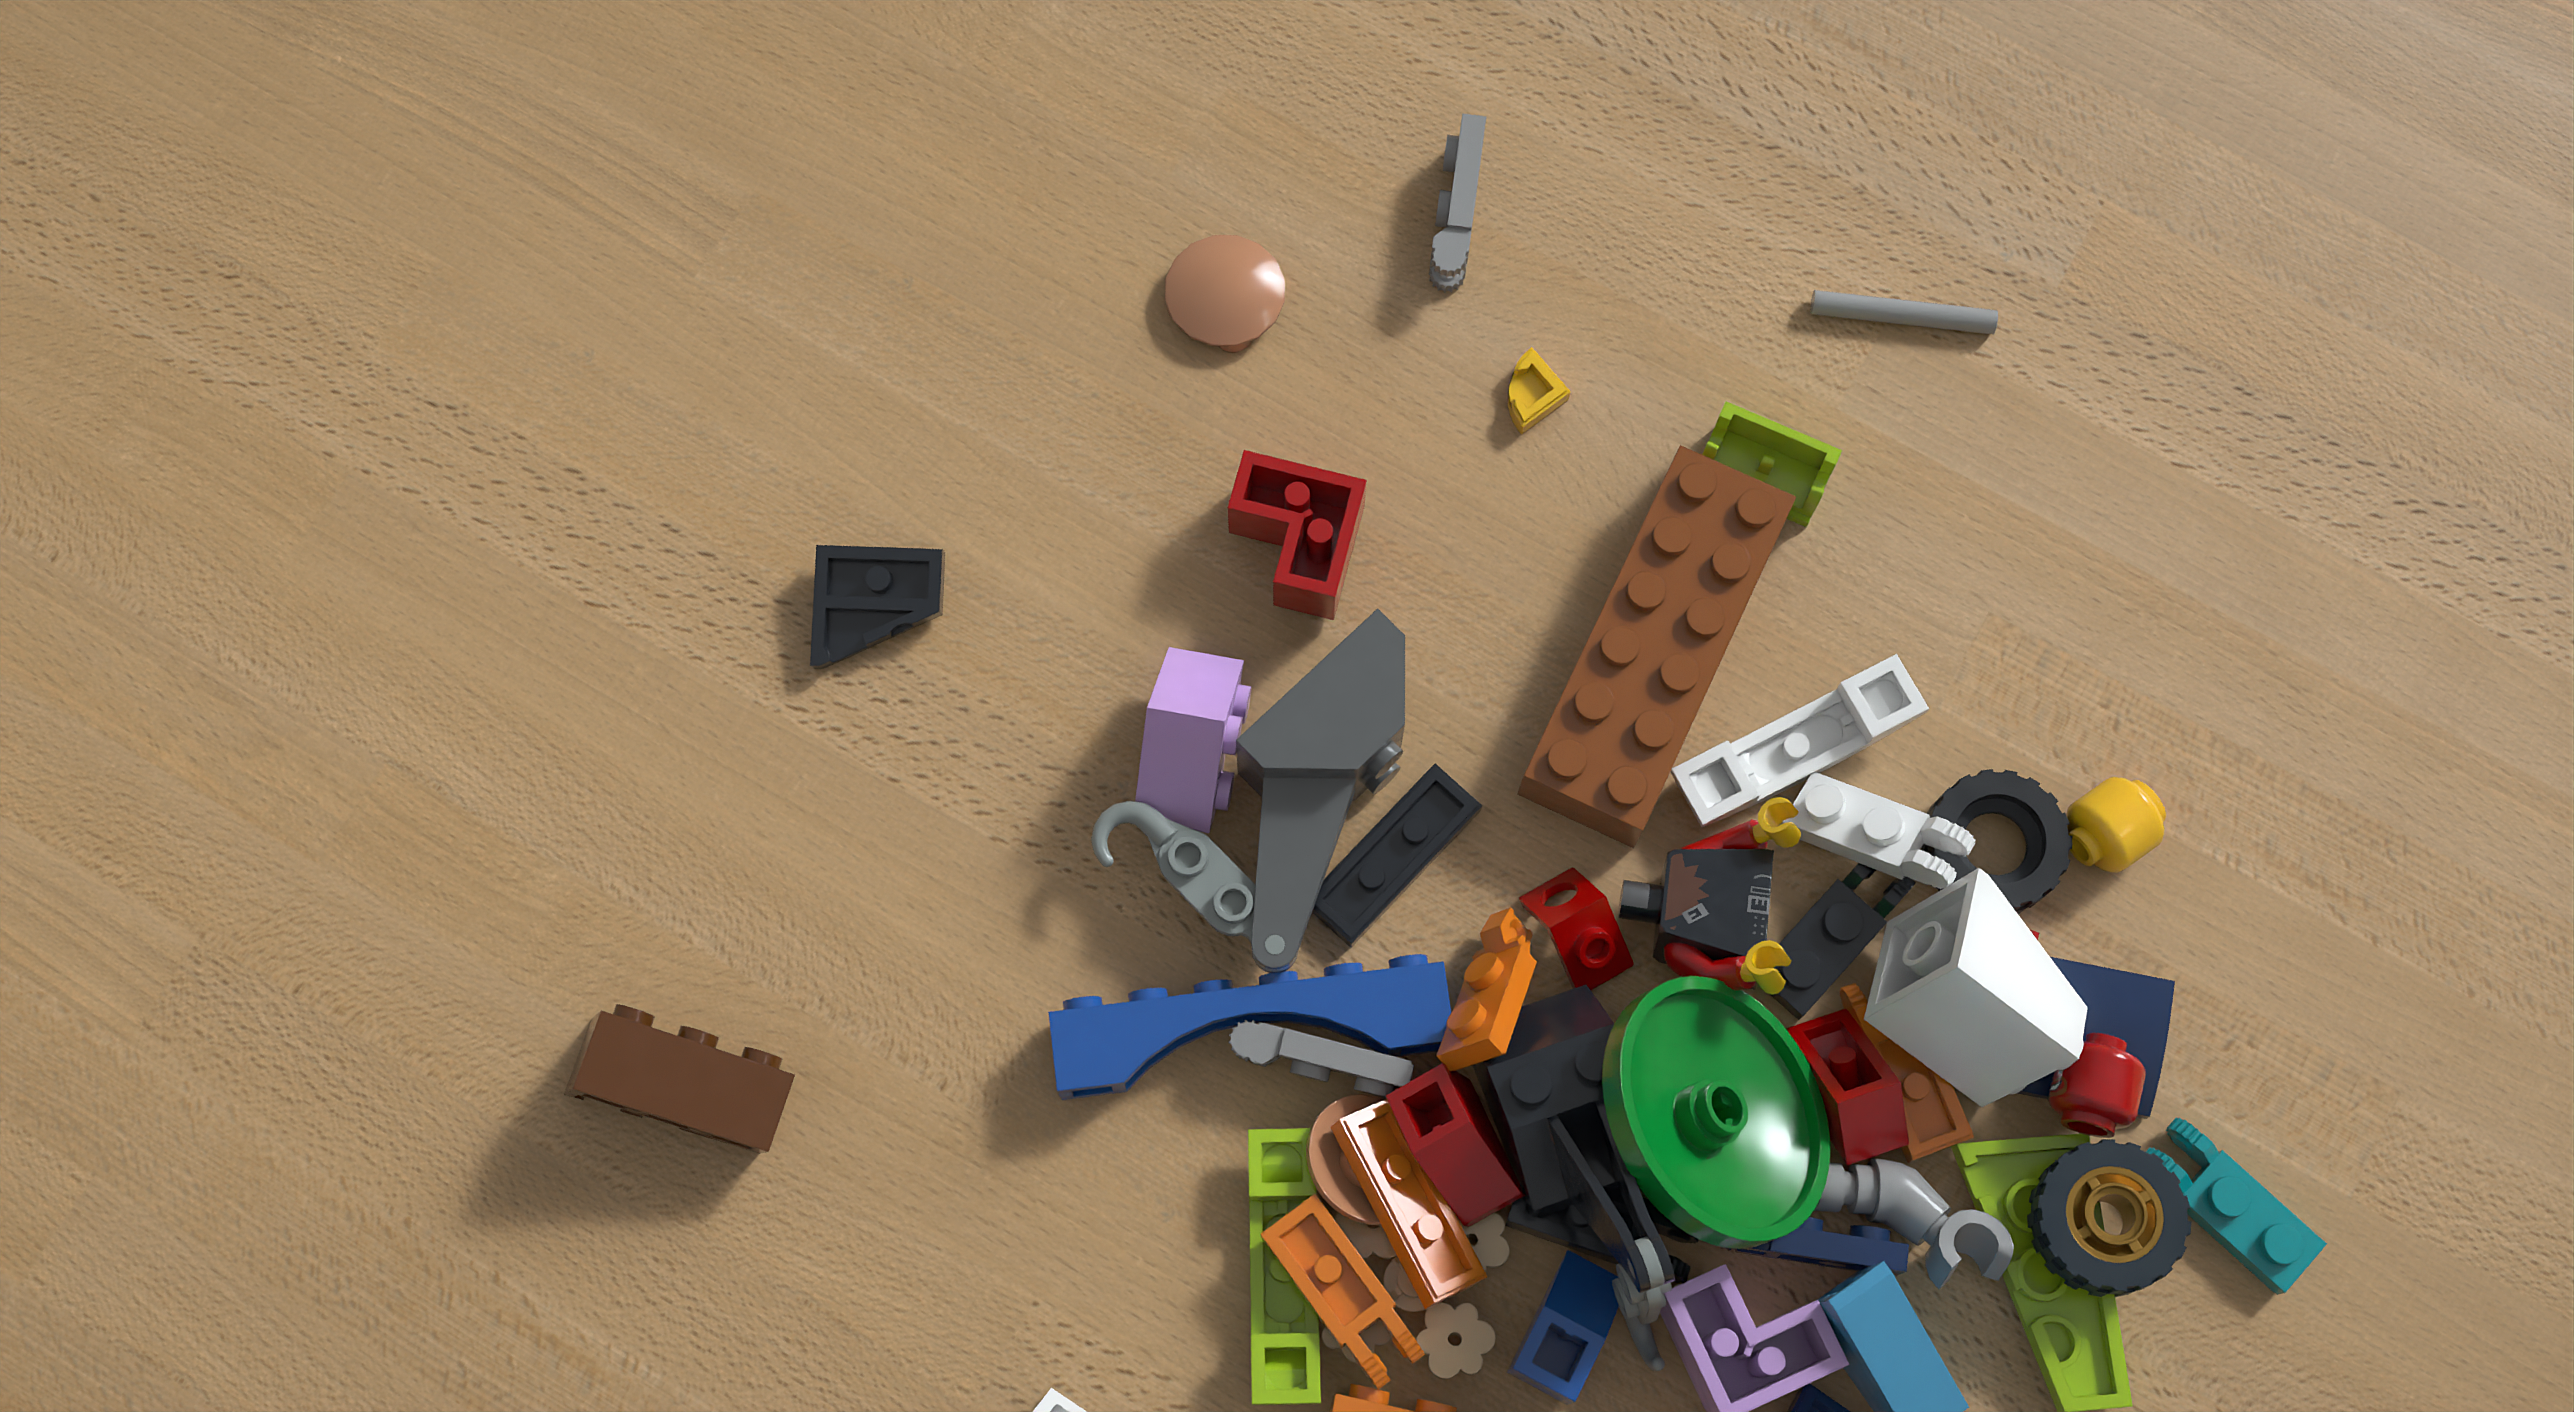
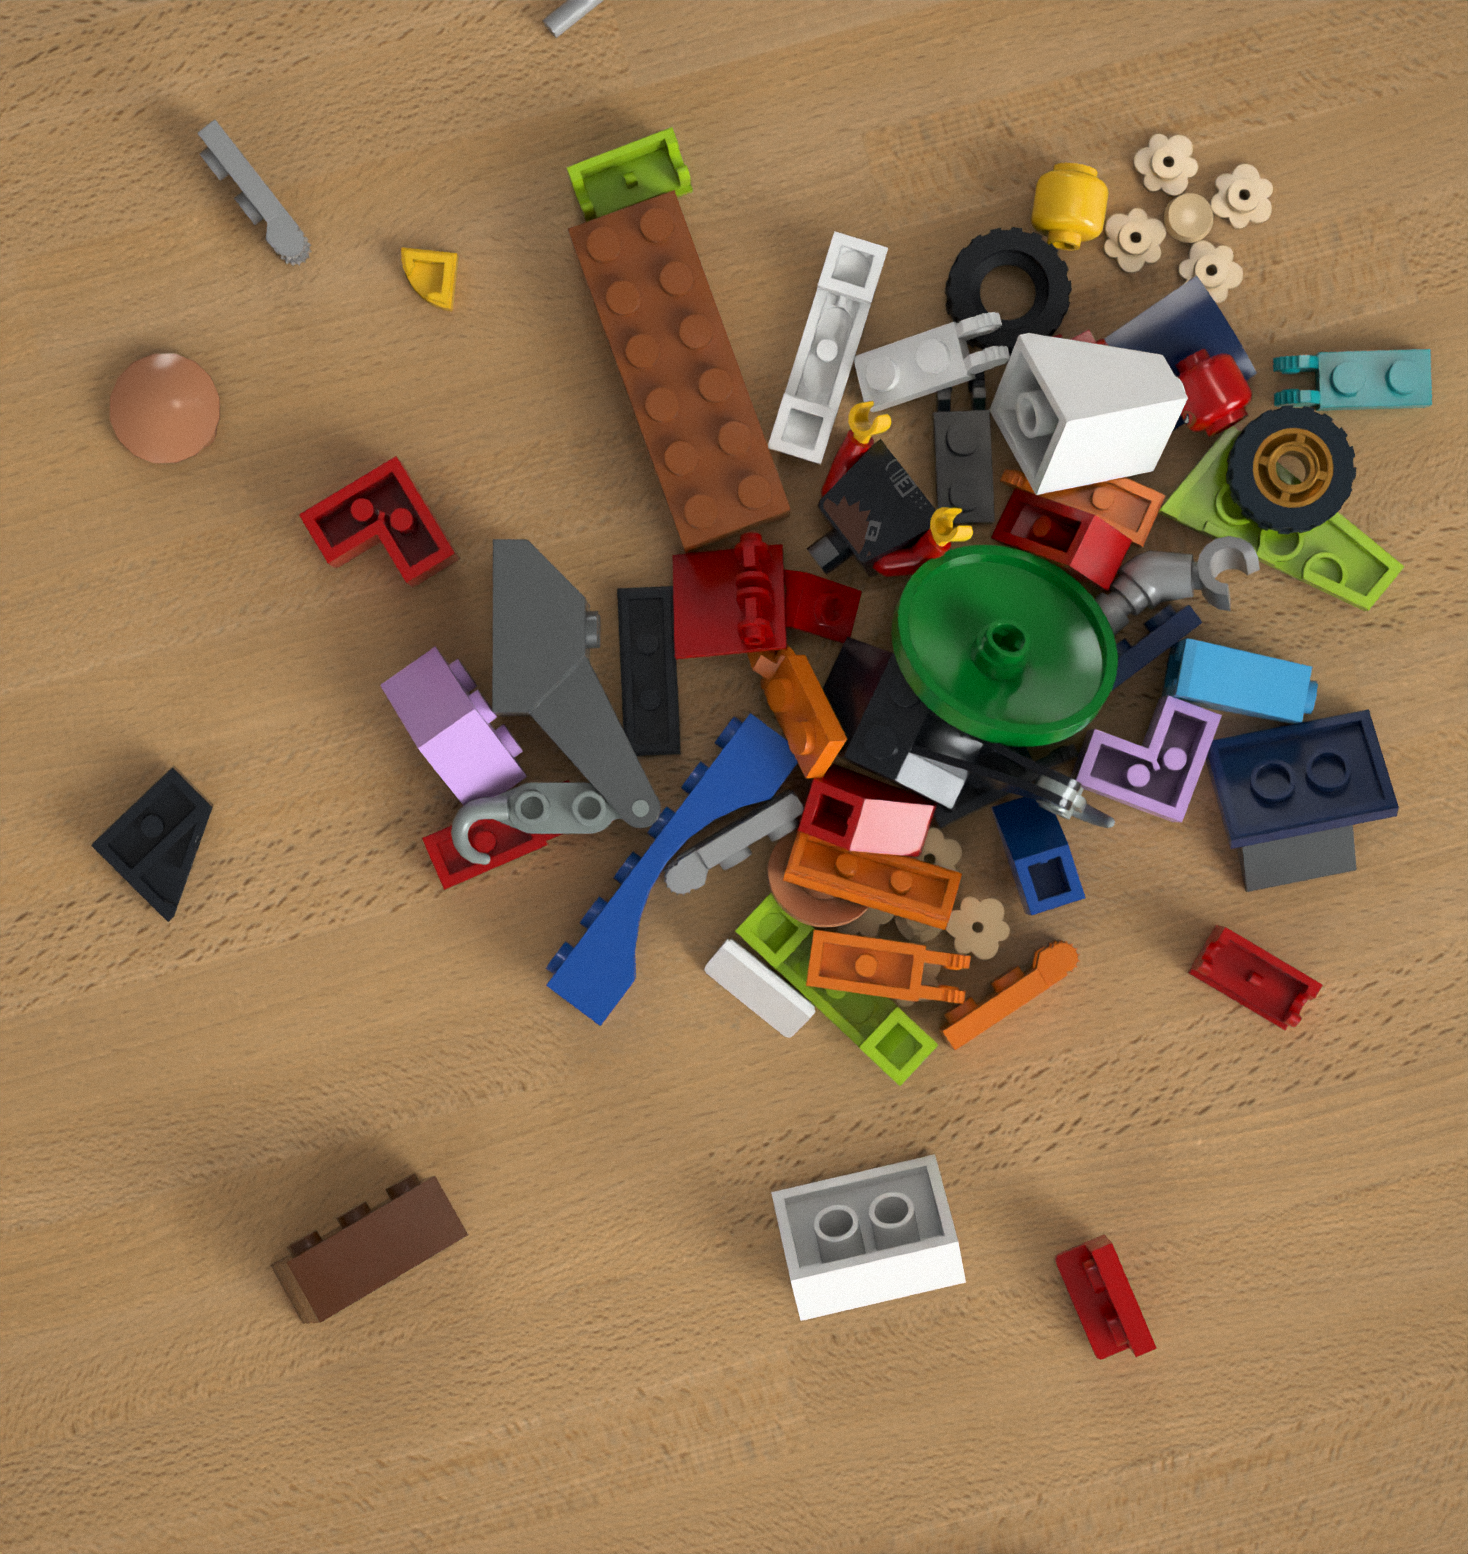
camera: 45 degrees left, 15 degrees up
(1134, 861) = (486, 836): none -> red hinge
(1218, 1202) = (759, 988): none -> white slope
(1519, 859) = (730, 600): none -> red hinge
(2209, 932) = (1188, 215): none -> tan plant

